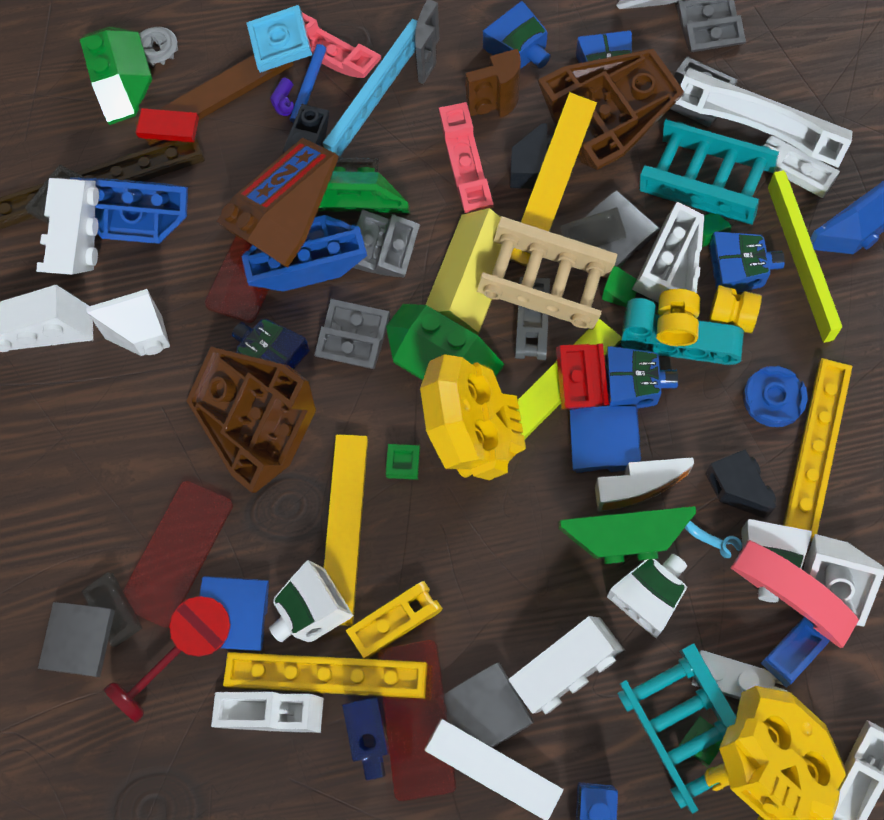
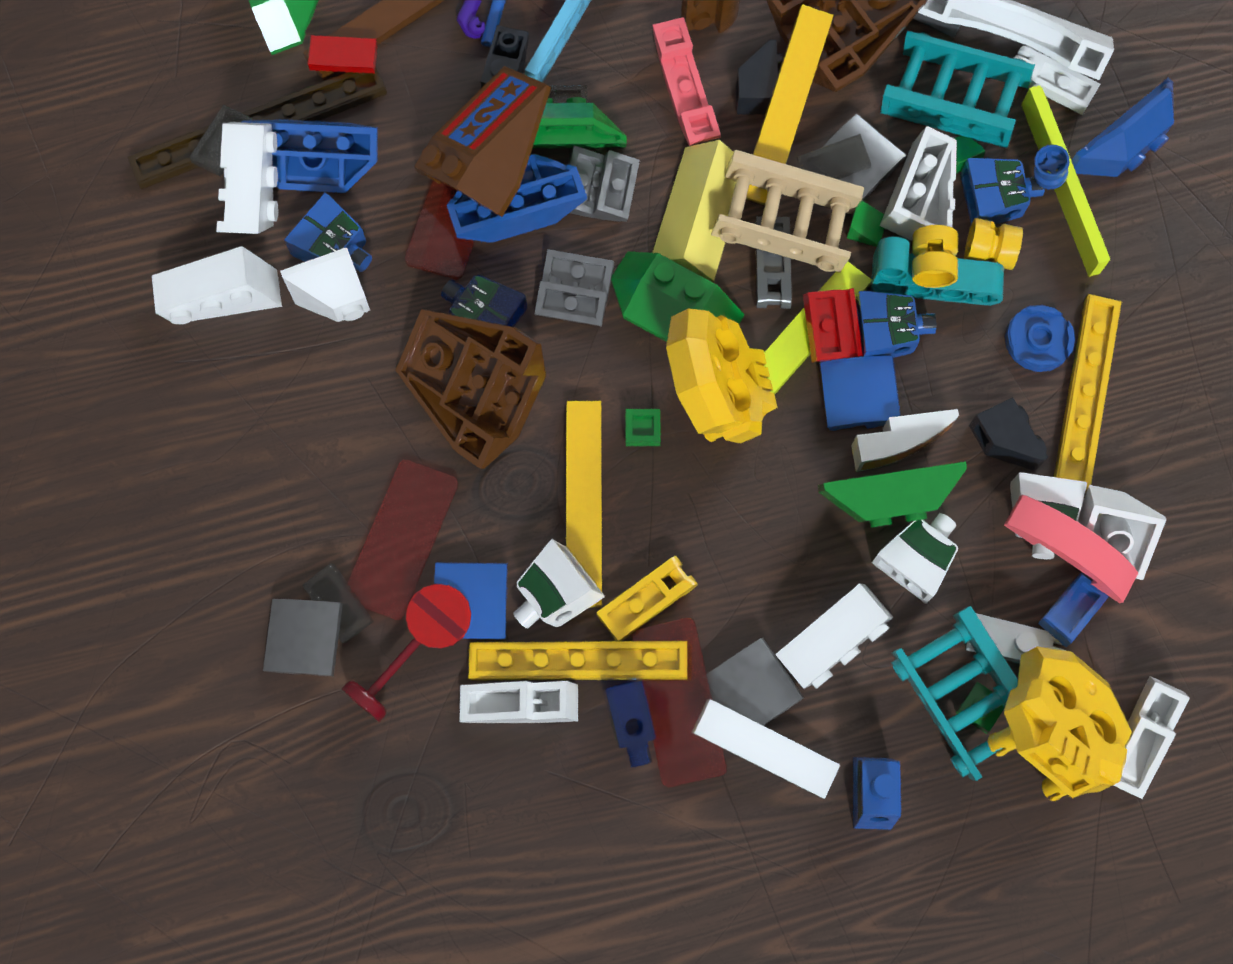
camera: 10 degrees left, 5 degrees up
(136, 273) = (327, 230): none -> blue torso
(701, 535) = (983, 498): medium azure piece -> none
(790, 234) = (1051, 159): none -> blue wheel

